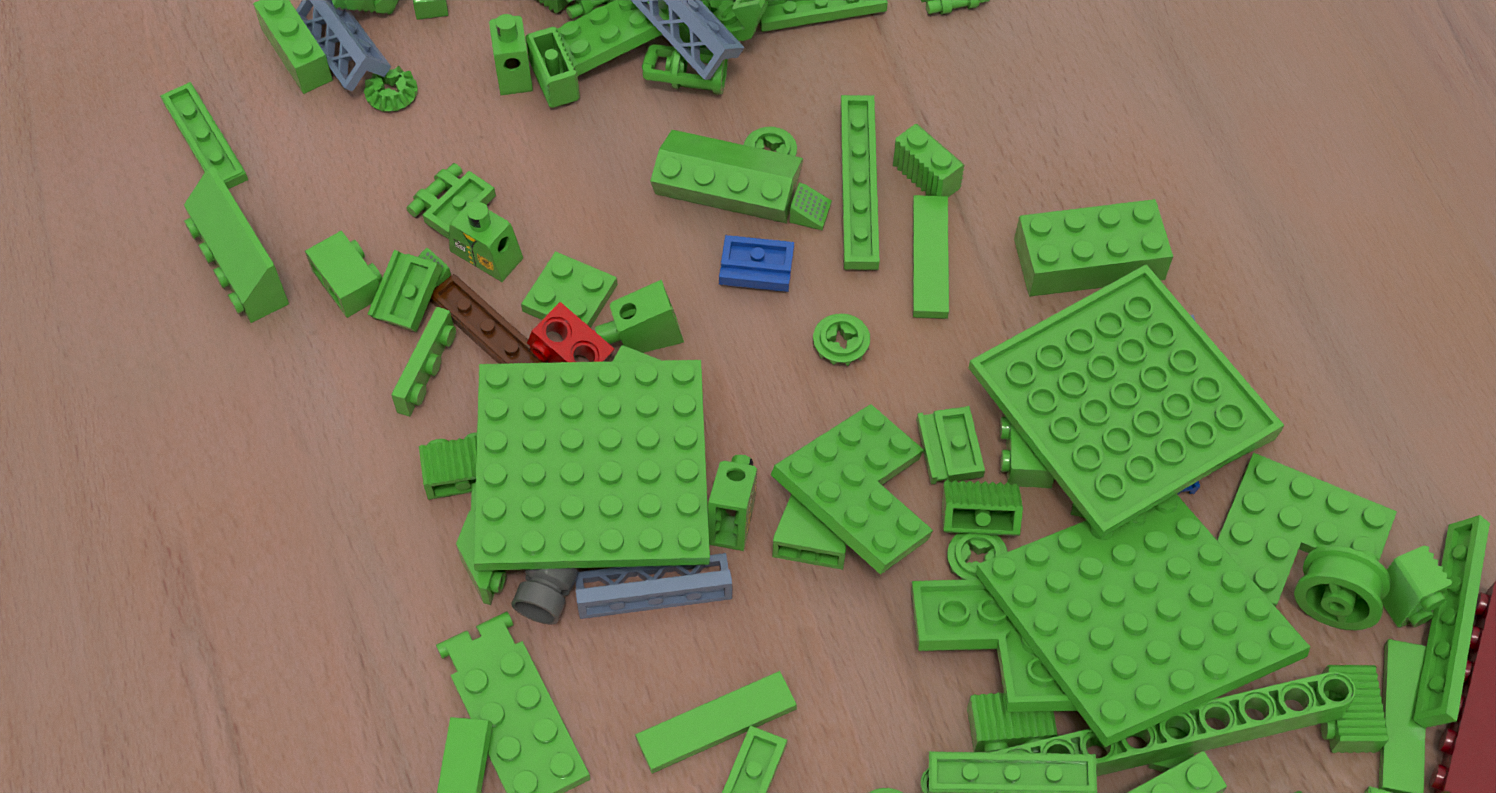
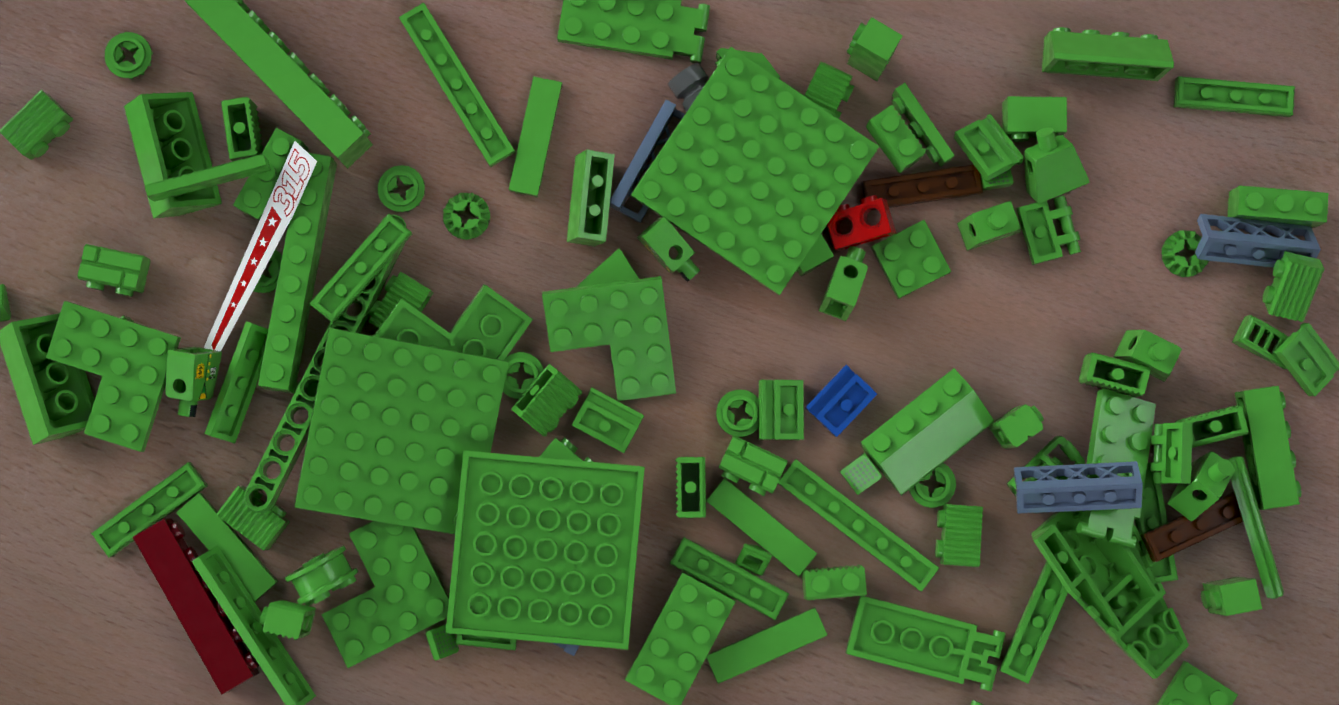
camera: 125 degrees right, 25 degrees up
(376, 432) = (872, 48): none -> bright green brick
(388, 223) = (1052, 167): none -> bright green torso
(456, 373) = (895, 139): none -> bright green brick
(662, 103) = (1017, 426): none -> bright green brick
(741, 607) = (590, 198): none -> bright green brick
(797, 98) = (960, 535): none -> bright green brick
(808, 304) = (781, 410): none -> bright green plate
(852, 746) = (473, 227): none -> bright green gear
(882, 294) = (752, 465): none -> bright green brick
(916, 71) = (923, 642): none -> bright green hinge
(949, 325) = (691, 487): none -> bright green brick
(963, 241) = (753, 558): none -> bright green slope
(1000, 253) = (729, 578): none -> bright green tile
(1025, 182) = (766, 645): none -> bright green tile
(1290, 445) = (441, 643): none -> bright green slope

